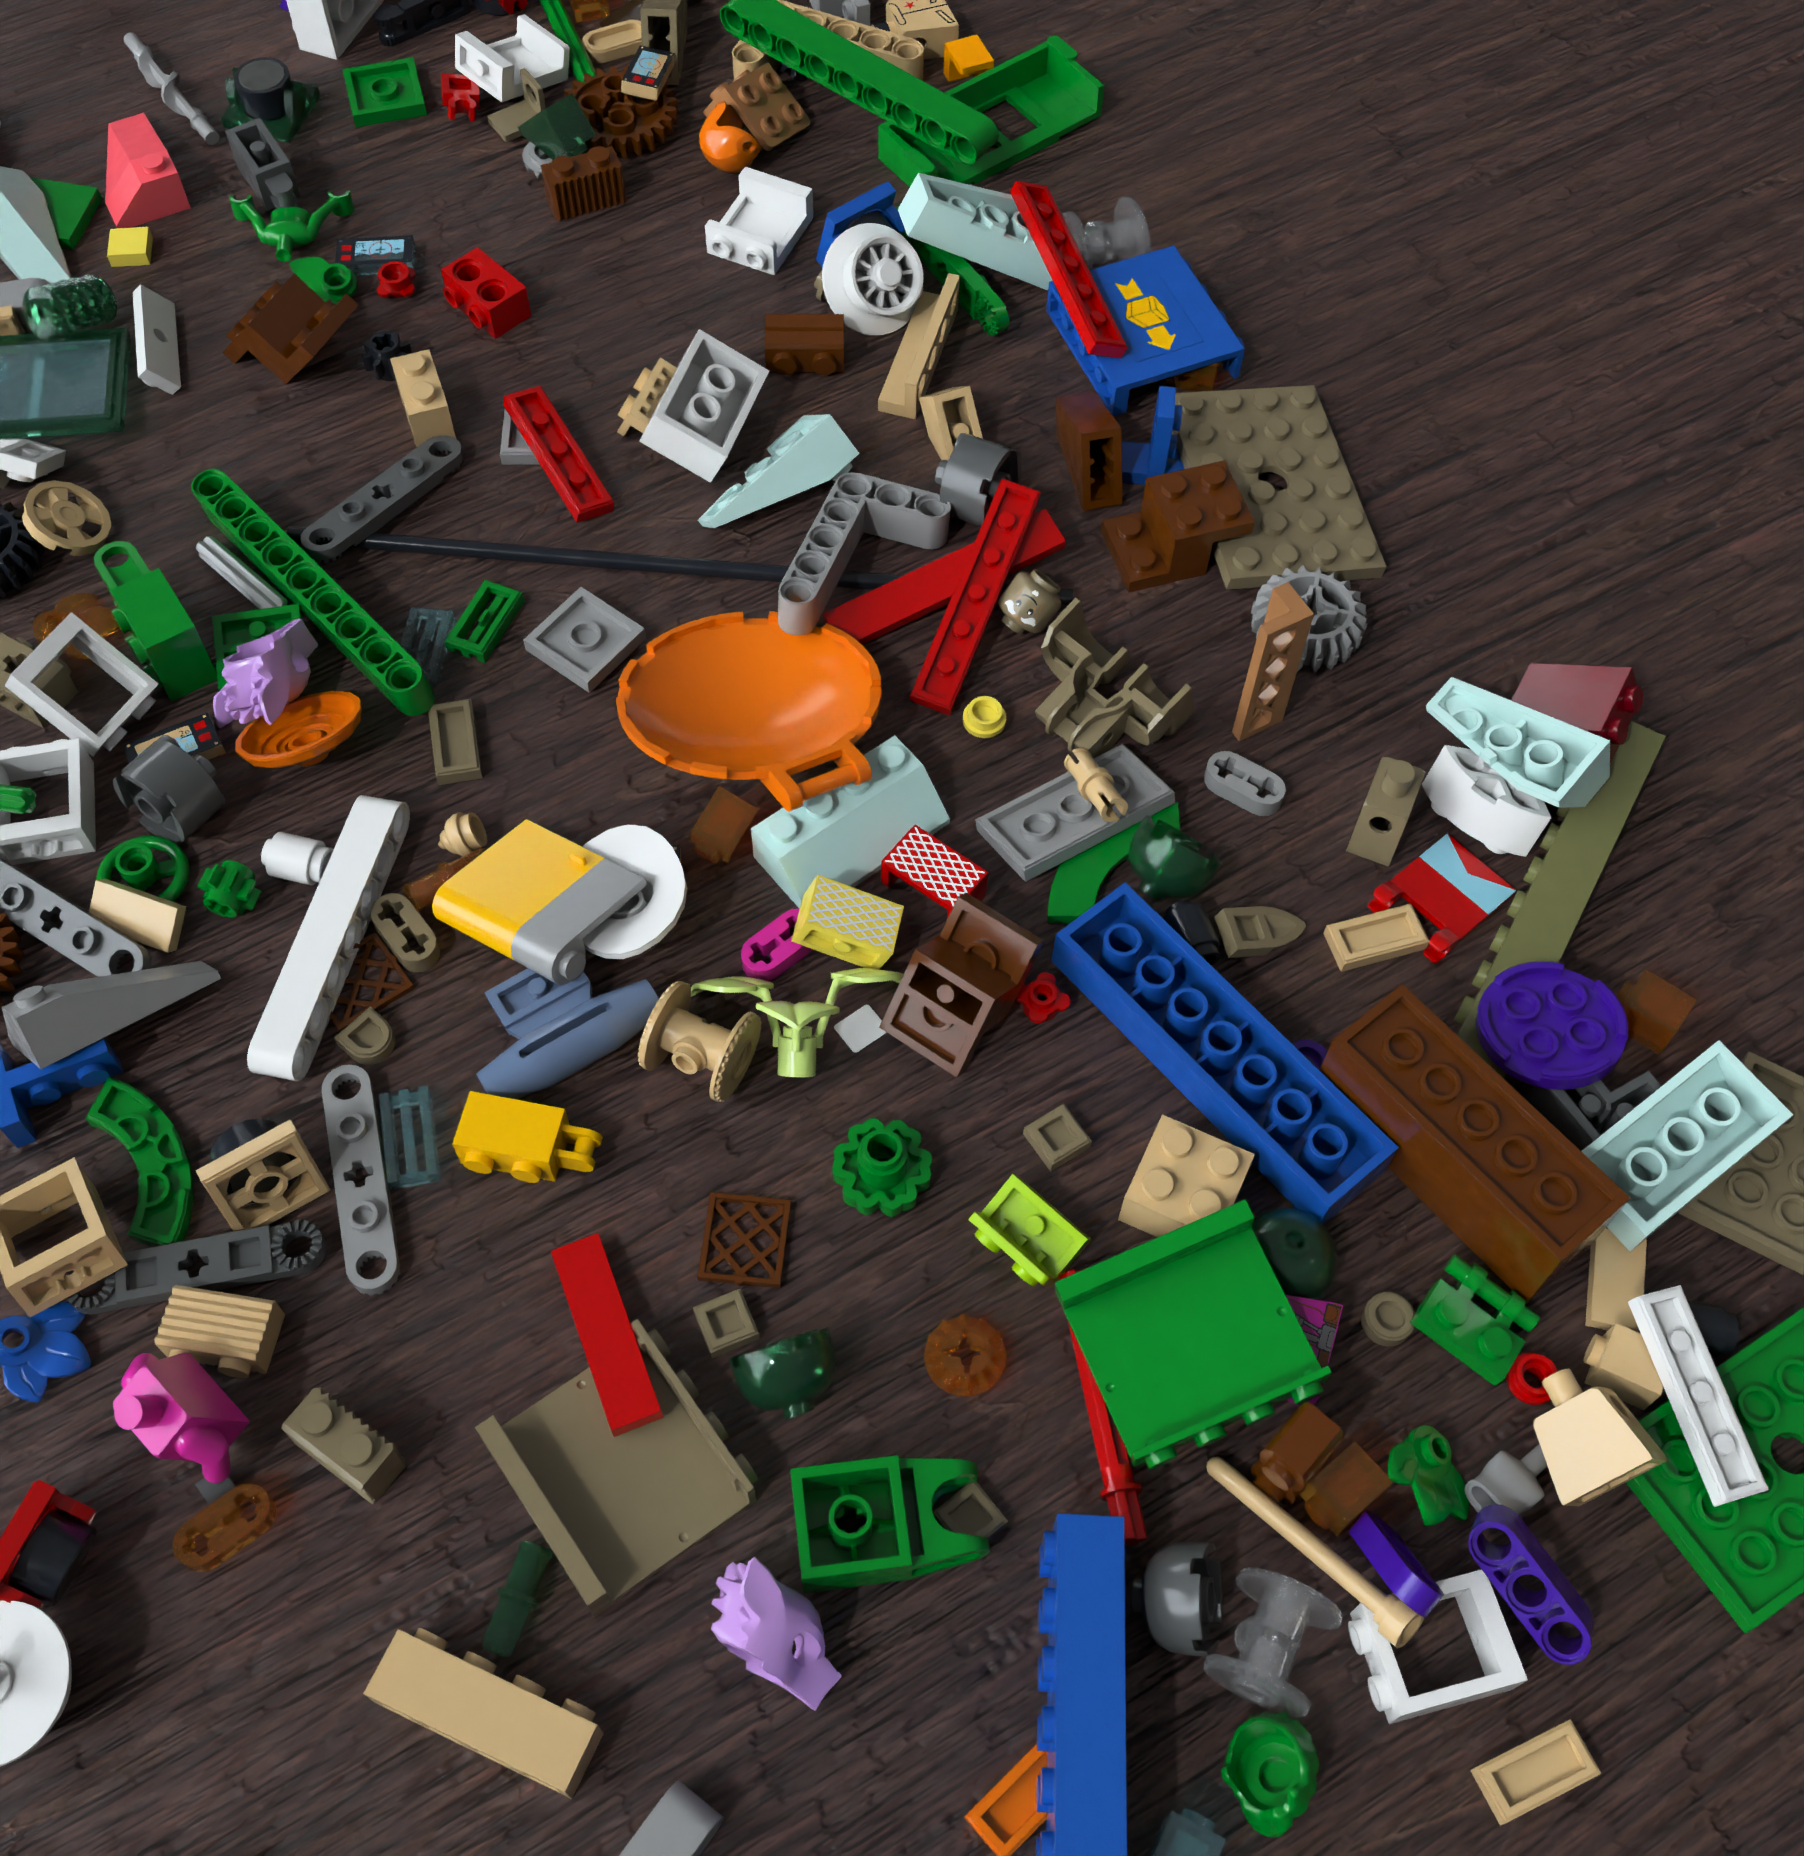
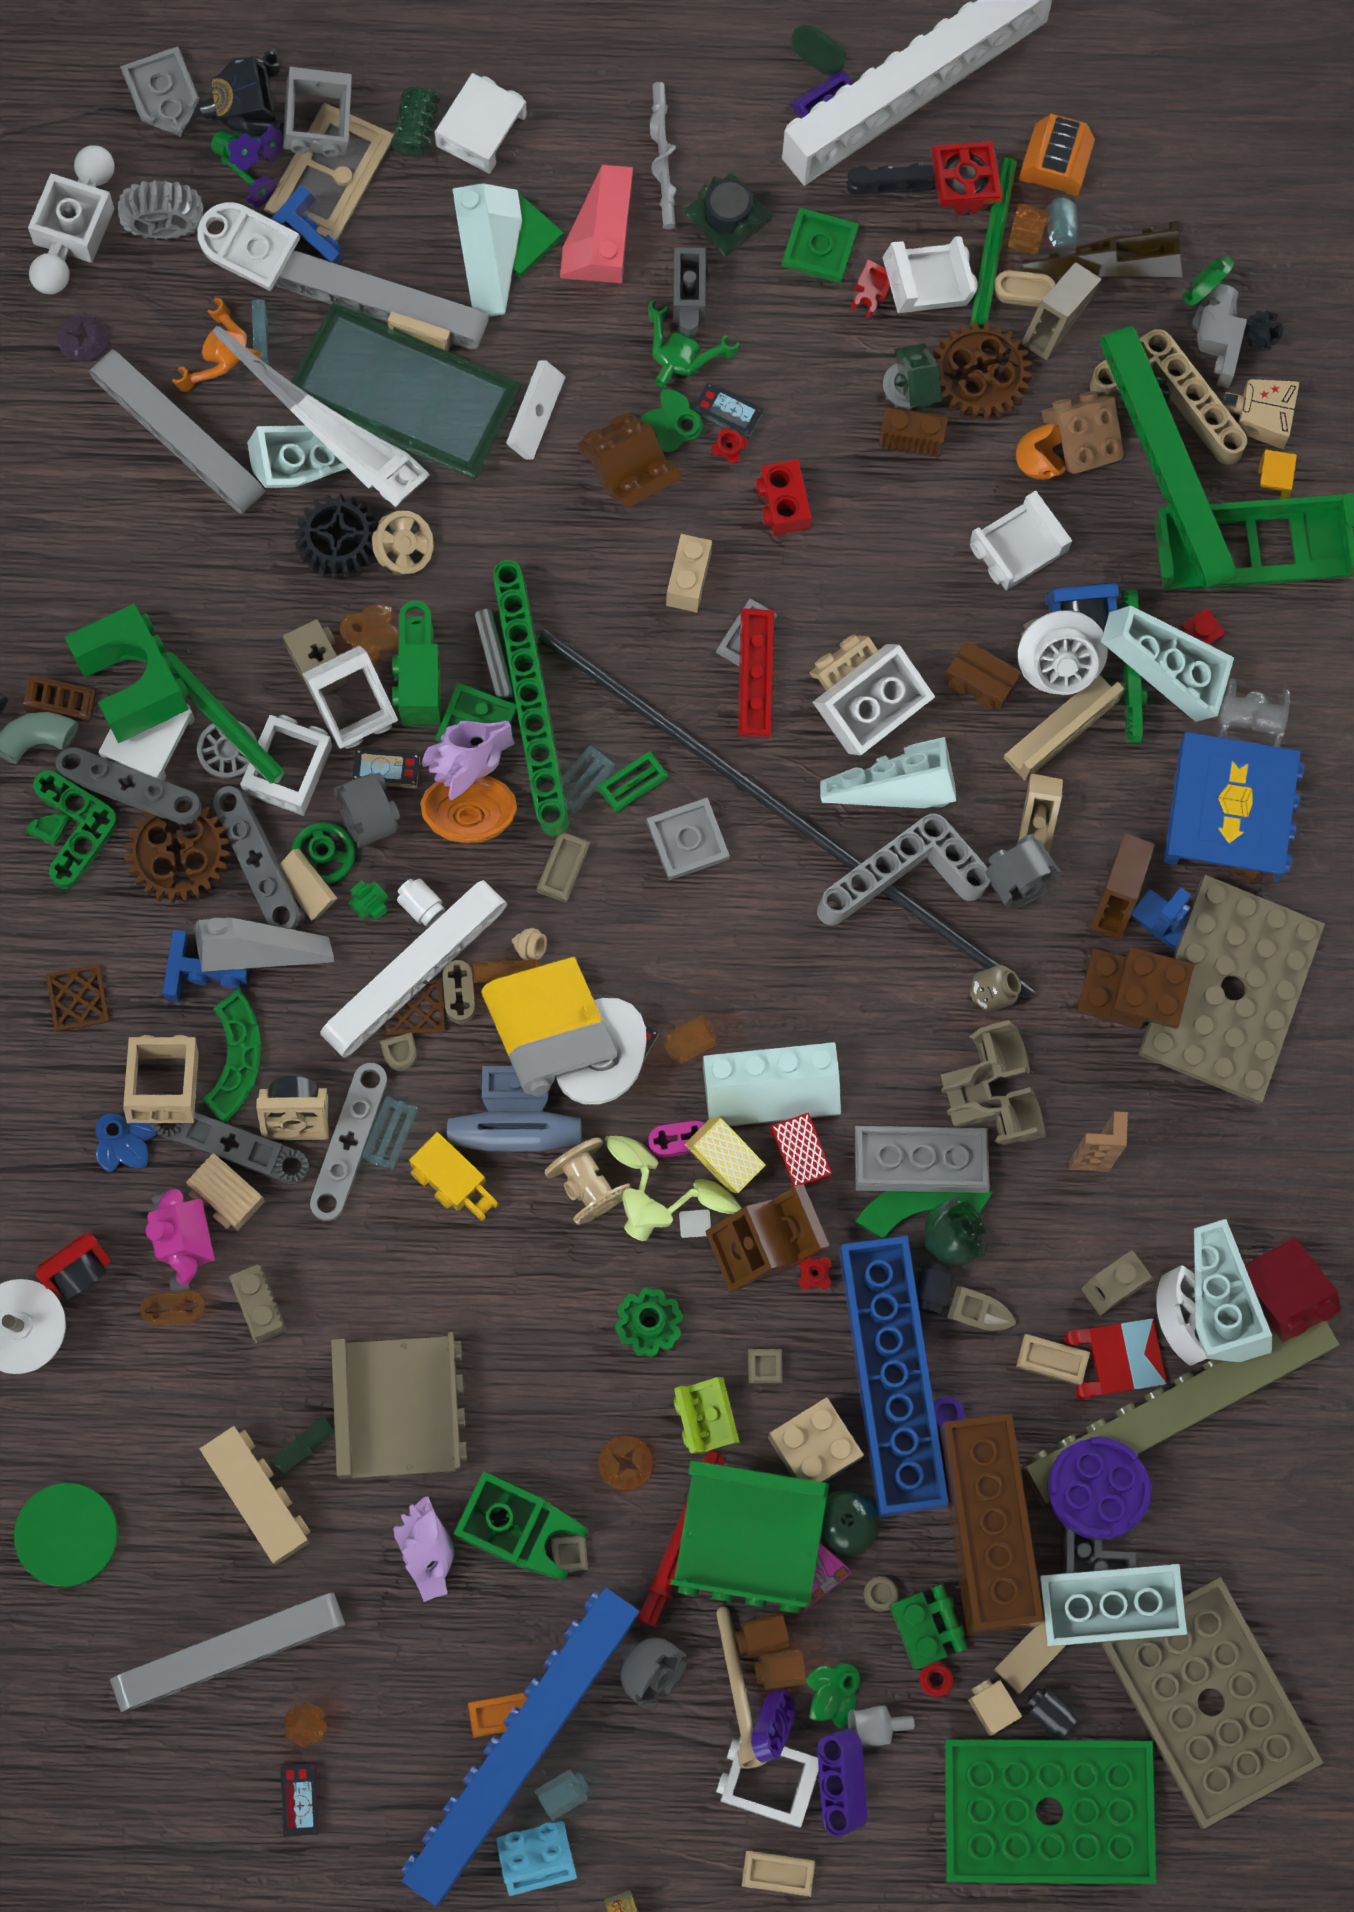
camera: 30 degrees right, 15 degrees up
(69, 305) = (488, 352): clear green piece -> none
(130, 246) = (560, 302): light yellow tile -> none
(365, 513) = (597, 649): dark grey piece -> none
(380, 349) = (686, 509): black gear -> none
(508, 119) = (904, 330): dark tan bracket -> none
(606, 1335) = (433, 1325): red tile -> none
(647, 73) = (1019, 354): tile -> none
(726, 1323) = (504, 1360): dark tan tile -> none
(749, 1202) = (561, 1295): reddish brown window -> none
(753, 703) = (761, 961): orange dish -> none
(787, 1372) = (518, 1412): clear green cylinder -> none
(932, 586) = (951, 936): red tile -> none
(975, 597) = (961, 963): red tile -> none
(984, 717) = (910, 1054): light yellow plate -> none
(1068, 270) = (1200, 734): red tile -> none
(1096, 785) = (940, 1154): tan pin -> none
(1244, 783) = (1054, 1200): light grey beam -> none
(1271, 1640) = (681, 1721): clear hose -> none
(1271, 1771) = (637, 1782): green hair -> none
(1337, 617) = (1187, 1119): light grey gear -> none
(1591, 1440) = (934, 1732): torso -> none
(1654, 1010) = (1182, 1514): clear orange brick -> none
(1697, 1396) = (1012, 1747): white tile -> none

